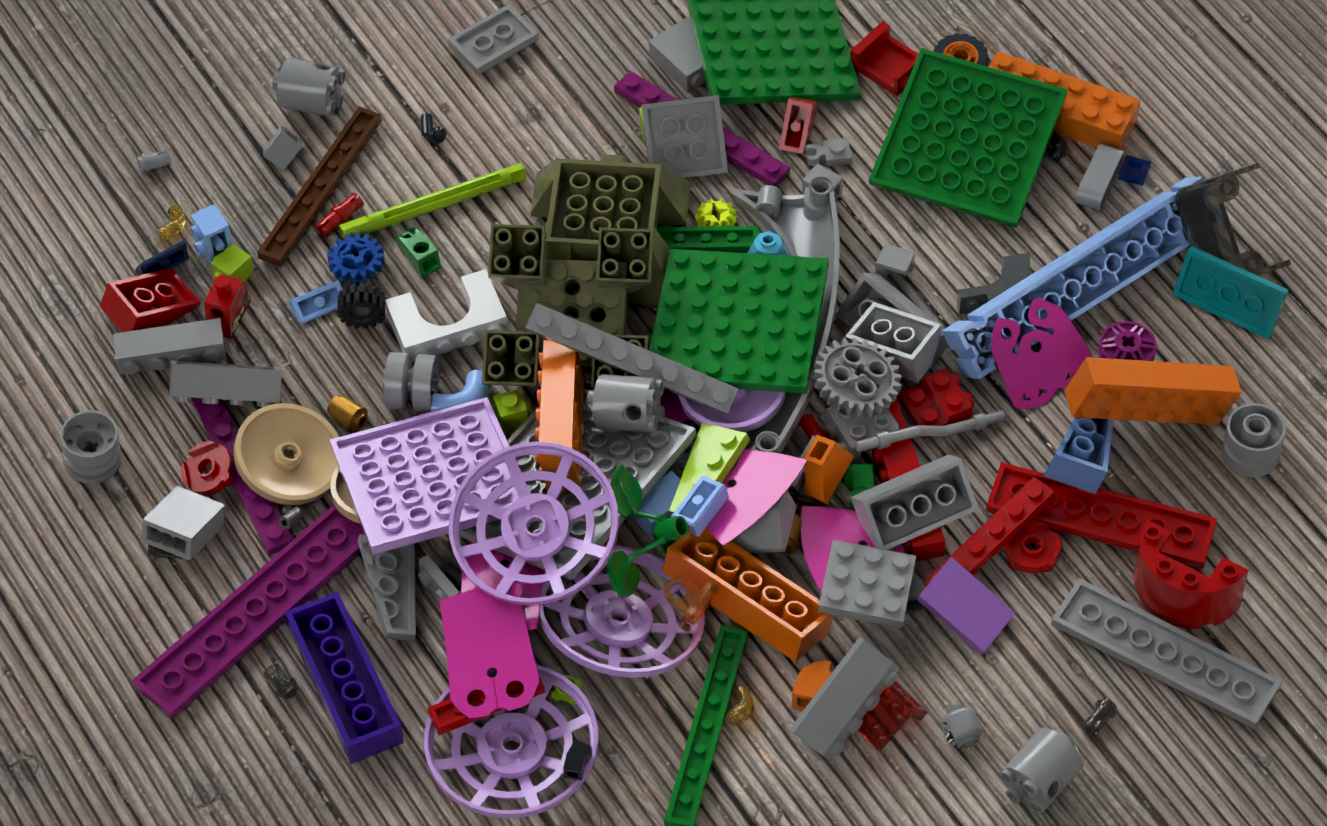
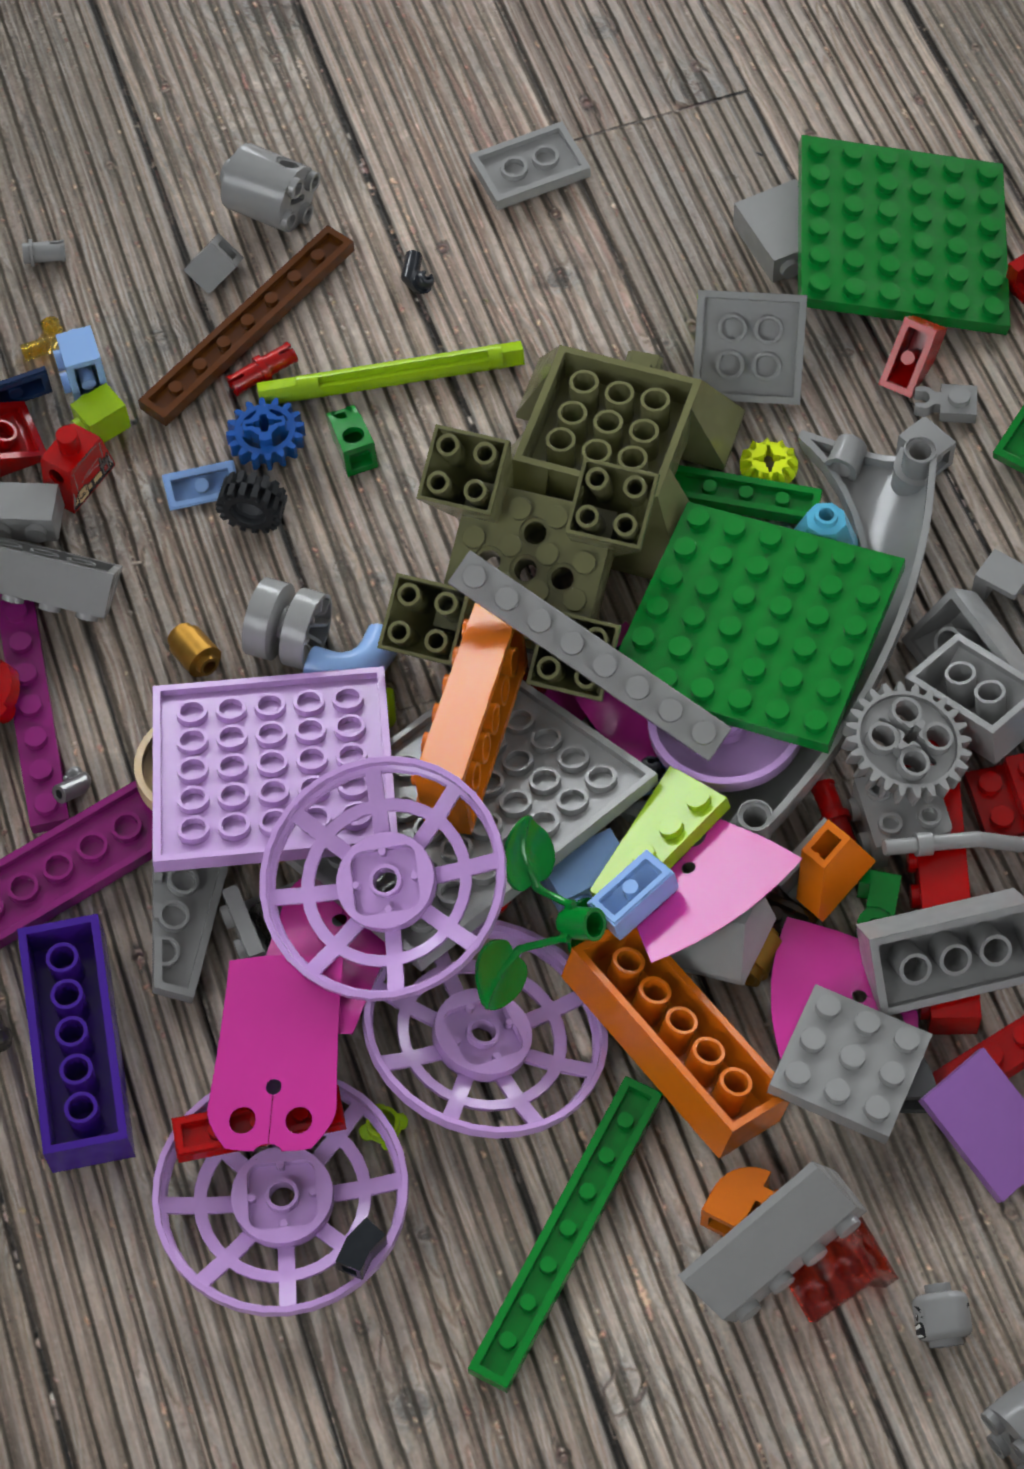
camera: 15 degrees right, 5 degrees up
(286, 453) = (90, 693): tan dish -> none
(421, 337) = (325, 566): white arch -> none
(511, 410) = (414, 691): lime brick -> none
(626, 403) = (567, 719): light grey cylinder -> none
(694, 603) = (590, 1040): clear orange tile -> none
(738, 151) = (819, 374): magenta plate -> none
(743, 708) = (629, 1212): clear yellow arm -> none

